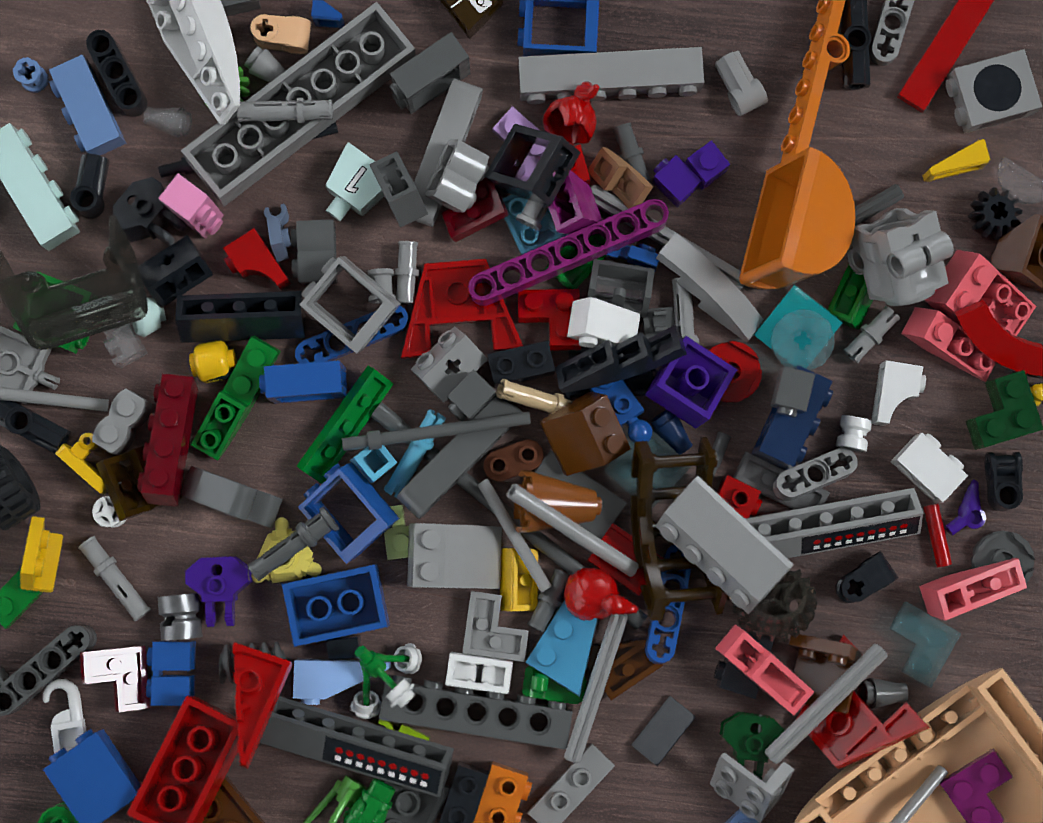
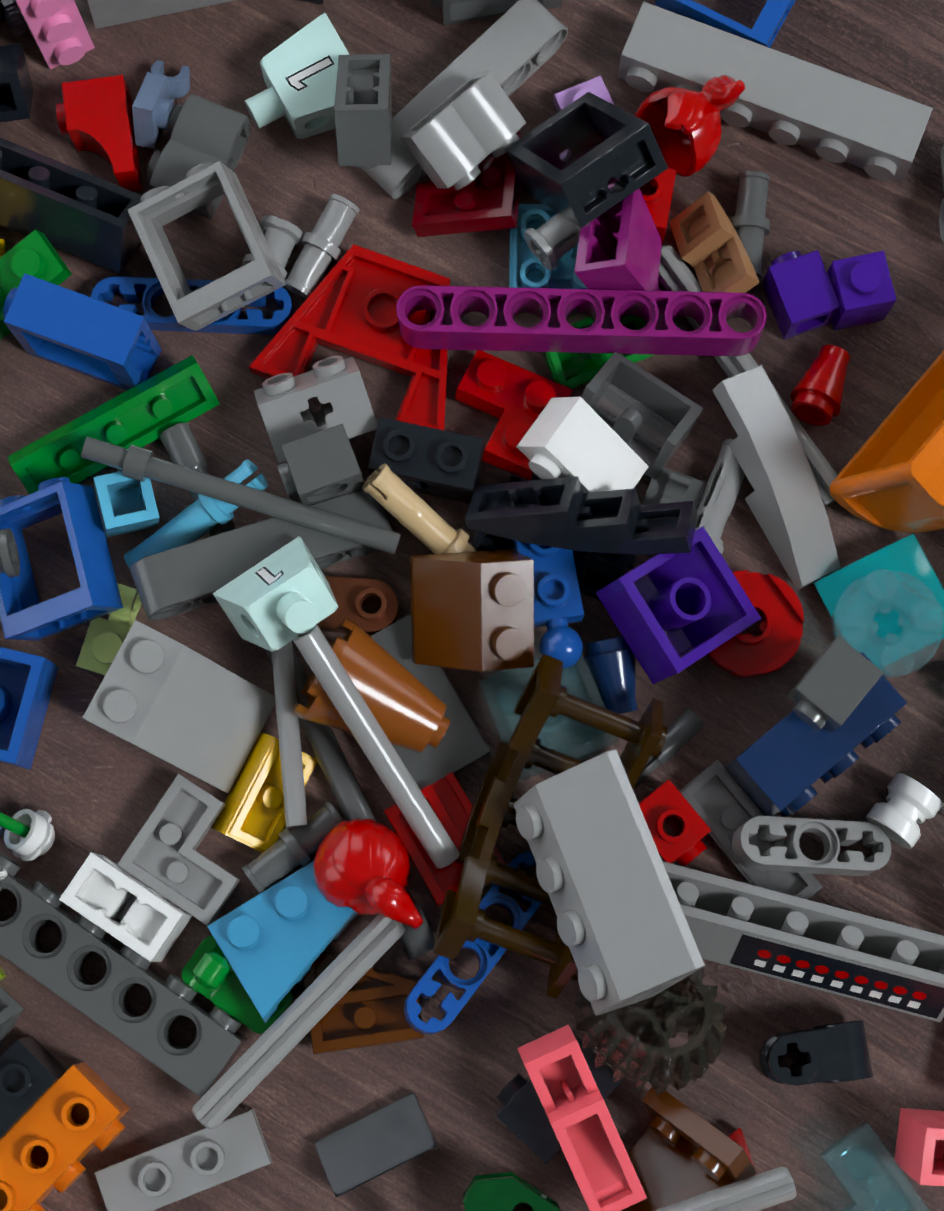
camera: 30 degrees right, 5 degrees down
(484, 477) = (278, 597): none -> light aqua torso
(641, 255) = (687, 378): blue plate -> none
(710, 226) = (821, 388): none -> red cone

